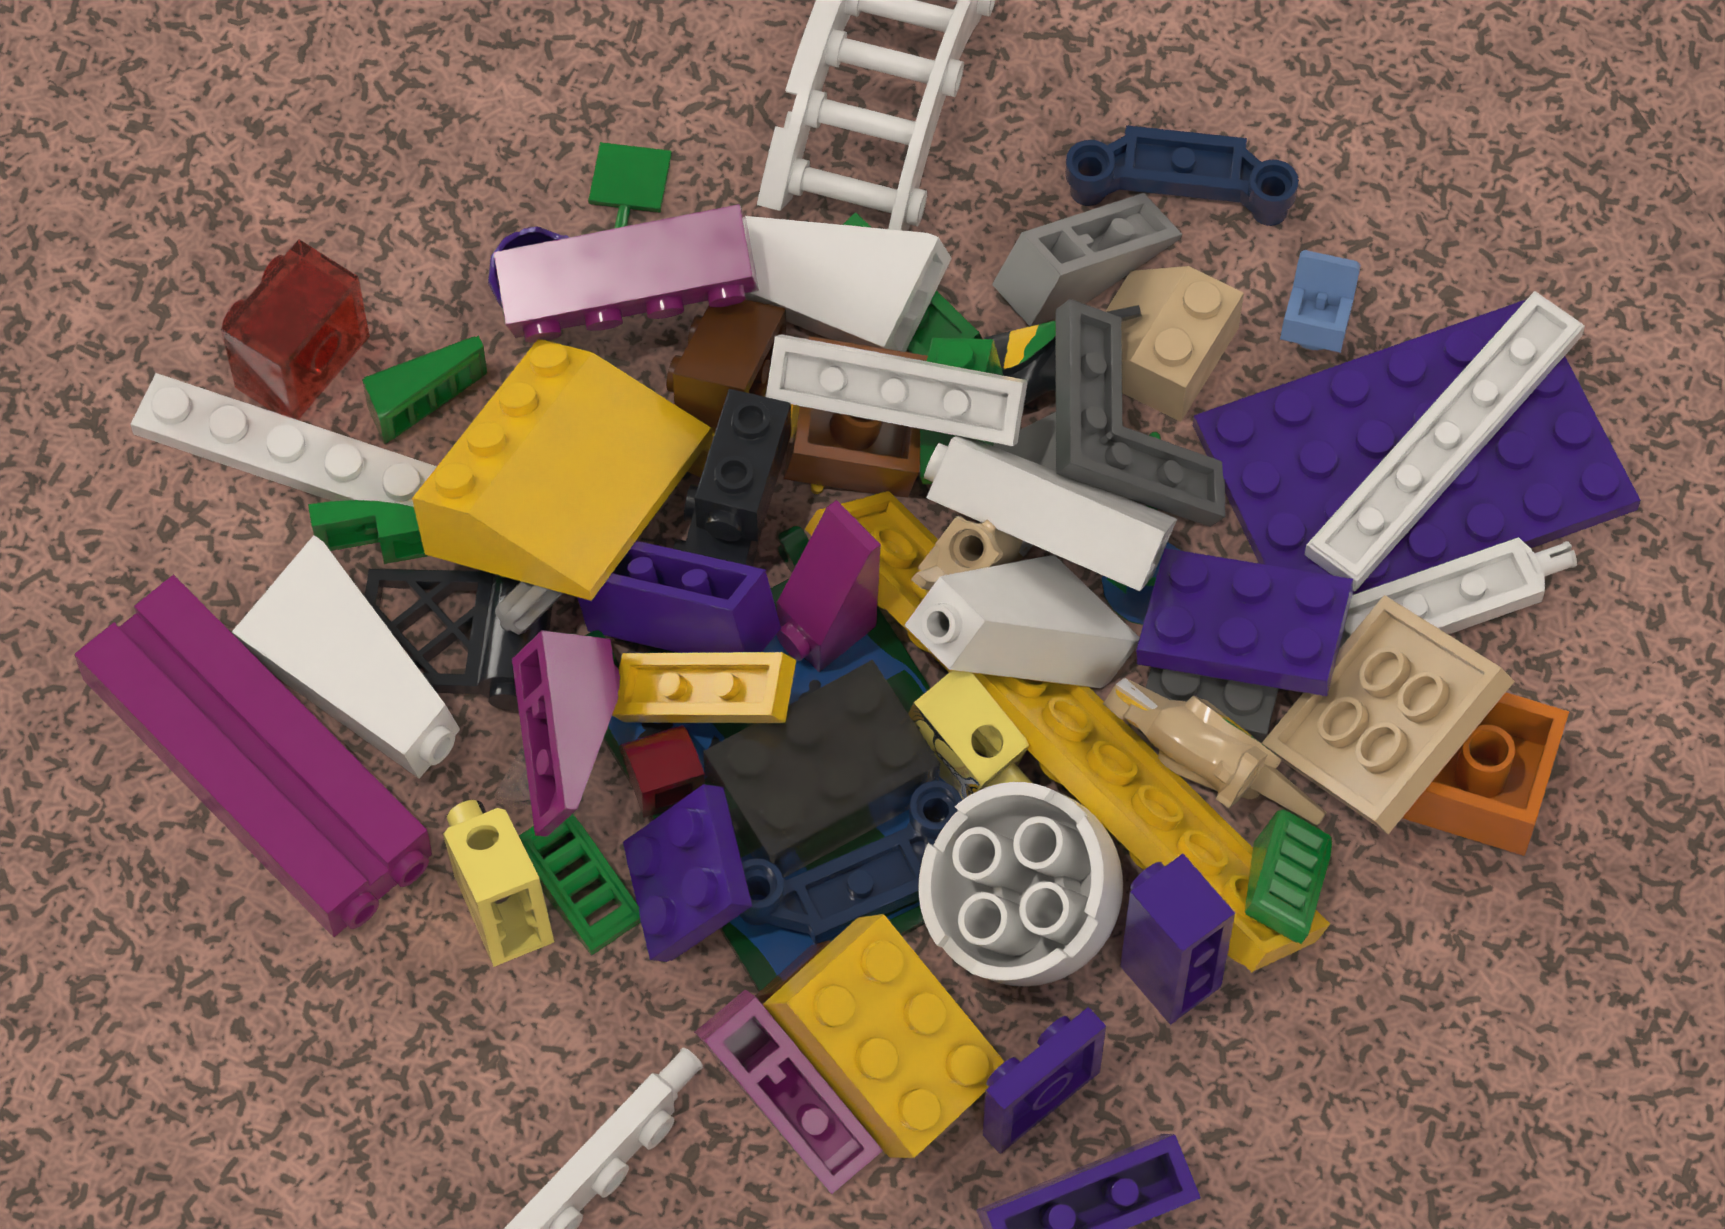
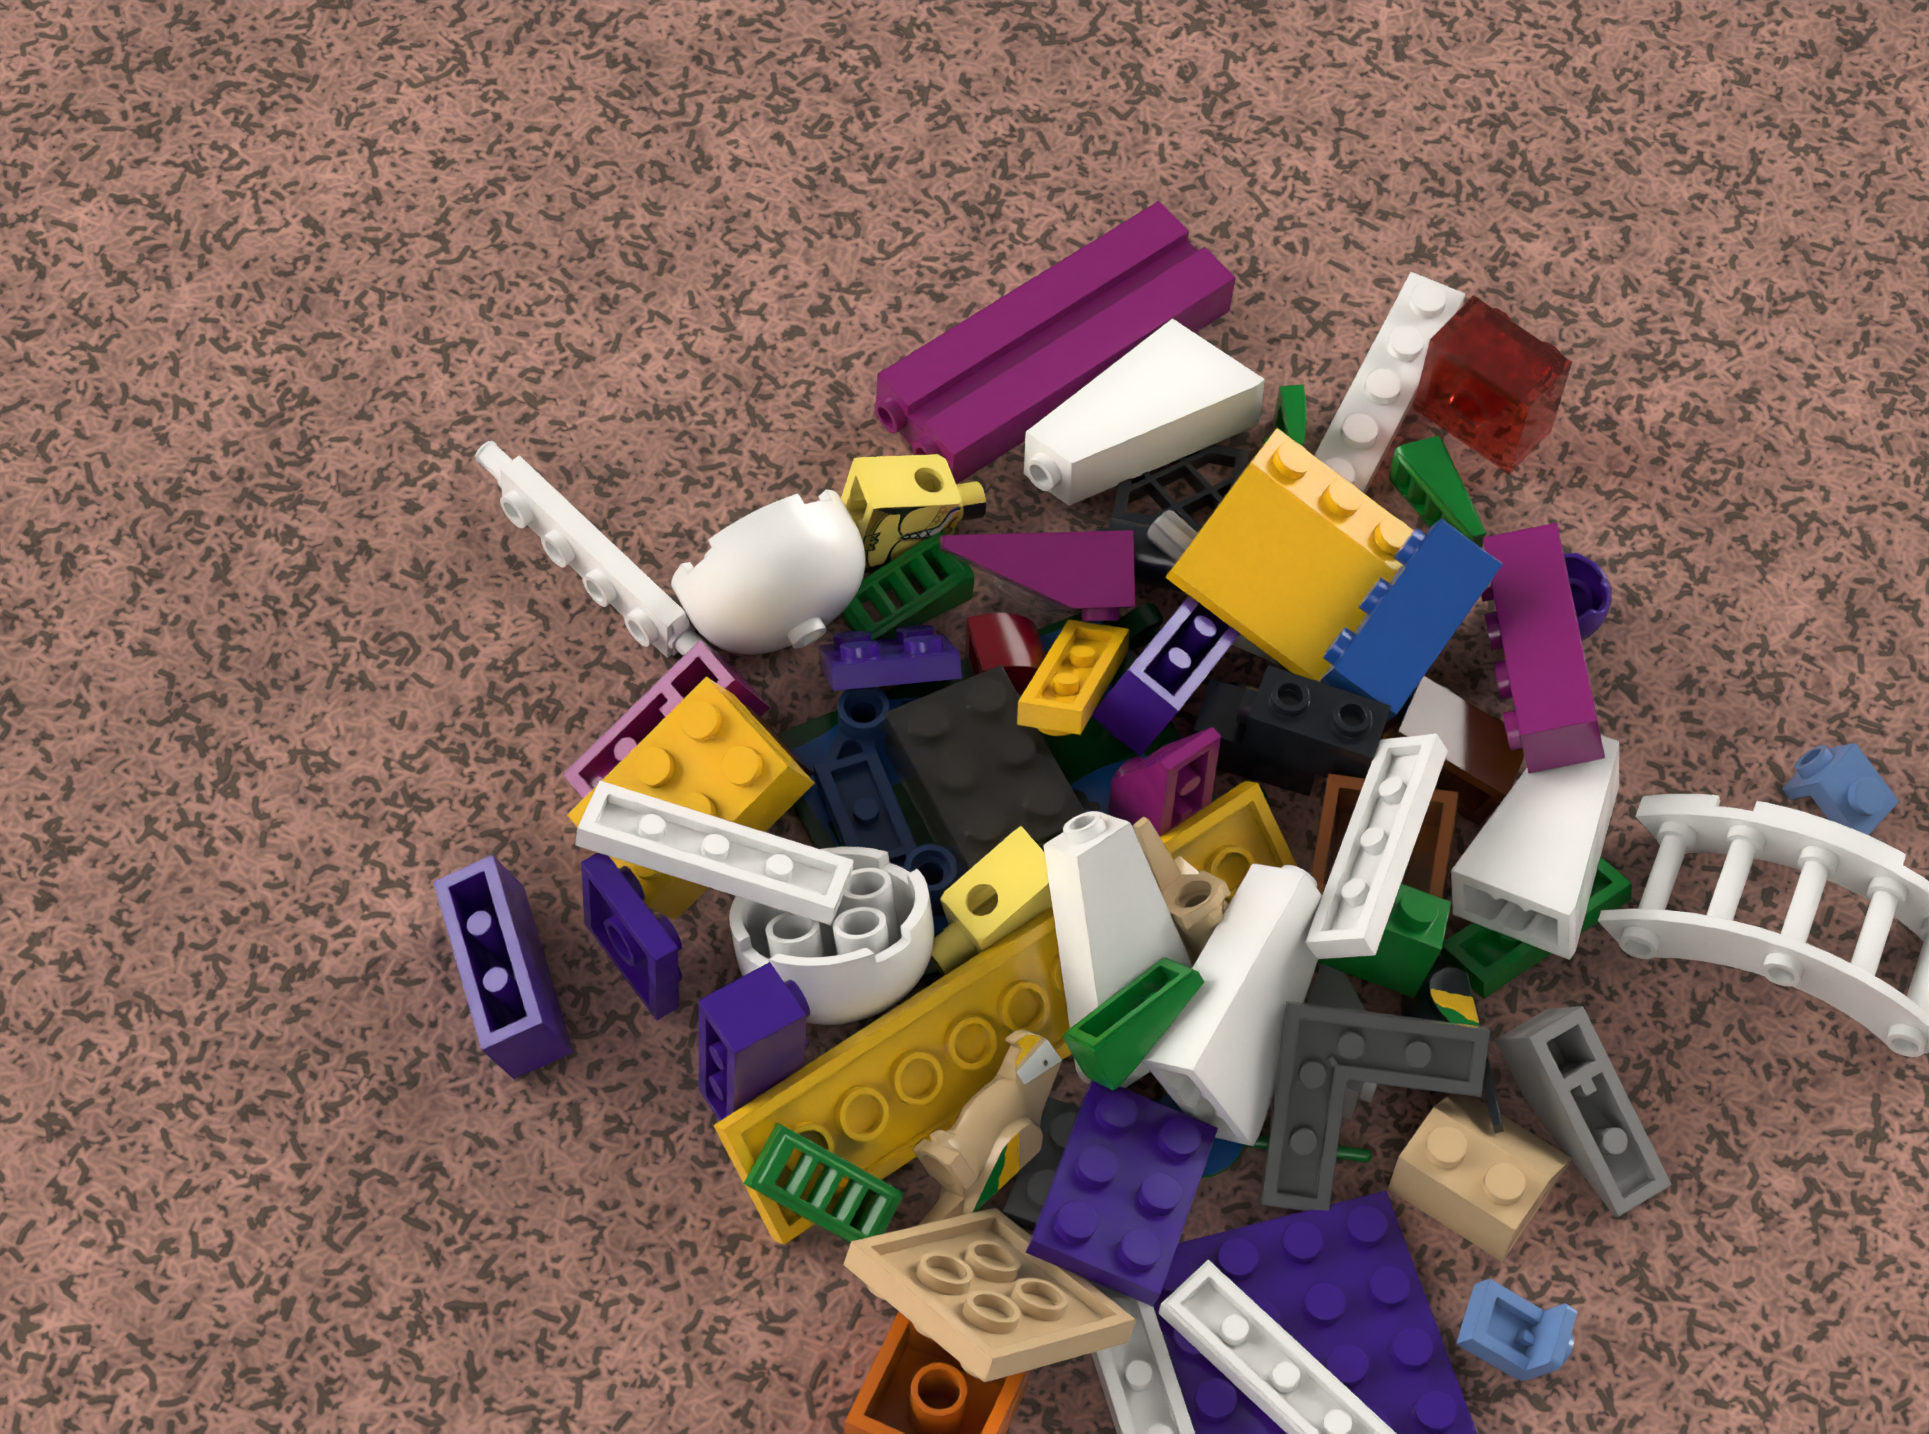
camera: 90 degrees right, 5 degrees down
(609, 982) = (775, 576): none -> white cylinder
(624, 377) = (1410, 616): none -> blue brick
(629, 179) = (1683, 704): green piece -> none
(714, 49) = (1842, 786): none -> medium blue bracket
(982, 981) = (714, 852): none -> white plate
(1113, 579) = (1128, 1024): none -> green slope
(1182, 166) = (1700, 1215): dark blue plate -> none

